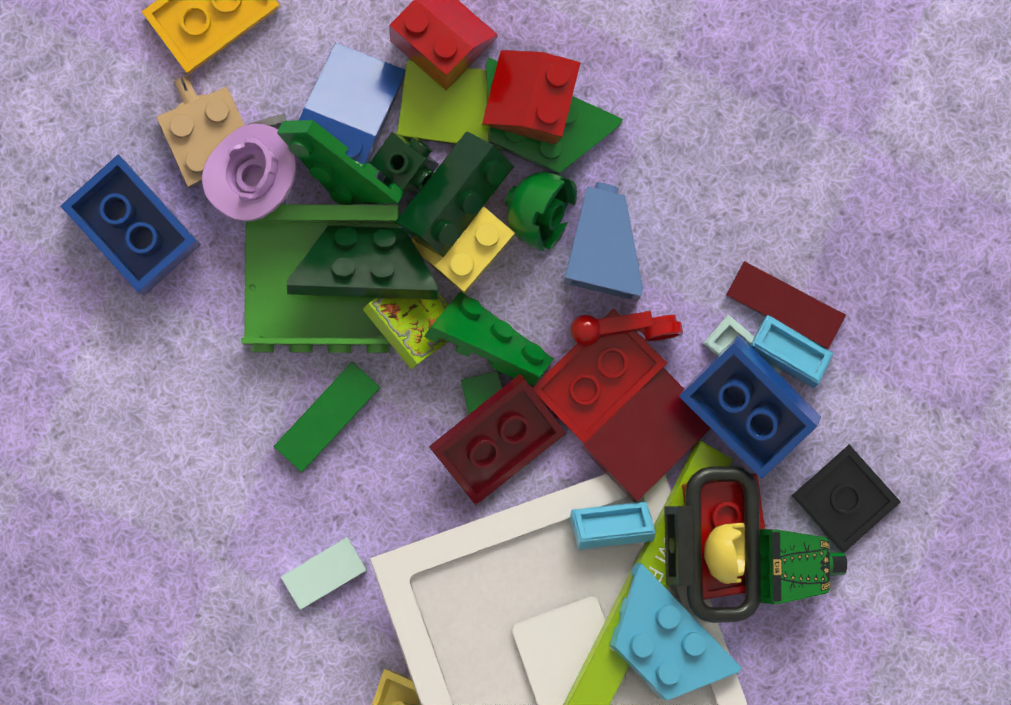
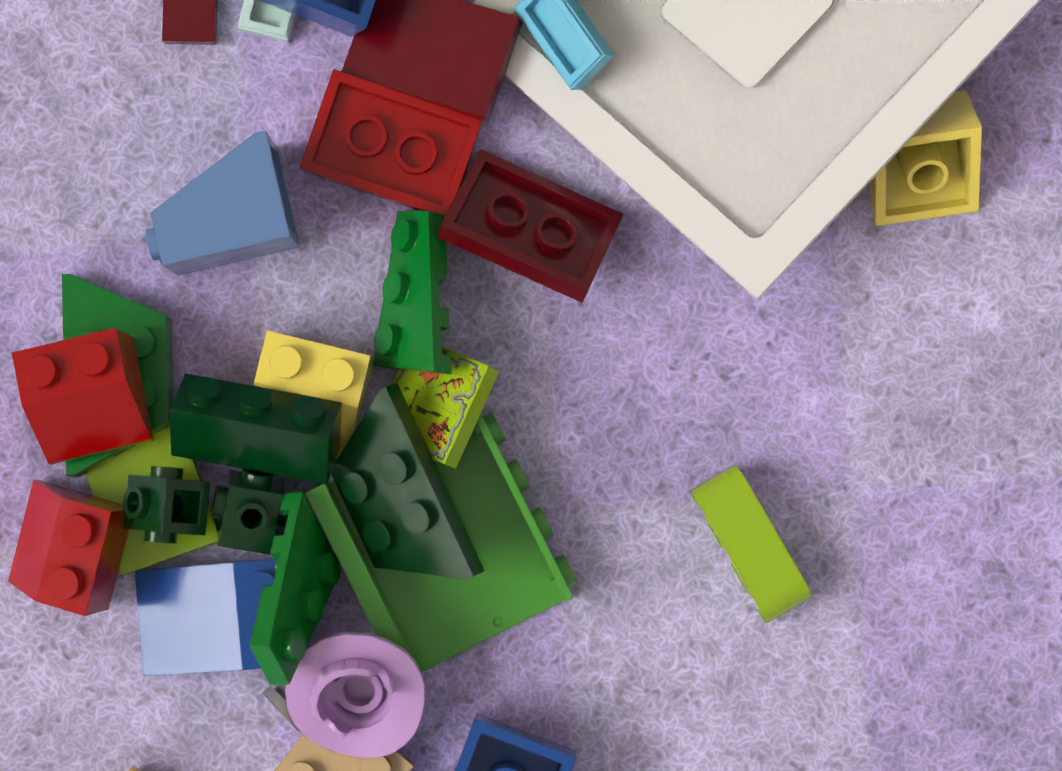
camera: 120 degrees left, 0 degrees up
(217, 477) = (751, 543): none -> lime beam
(323, 573) = (799, 356): light aqua tile -> none
(327, 417) = (608, 449): green tile -> none
(435, 112) = (166, 505): none -> dark green brick
(480, 388) = (481, 279): green tile -> none
(538, 208) = (222, 319): green cylinder -> none
(587, 329) = (340, 182): red piece -> none

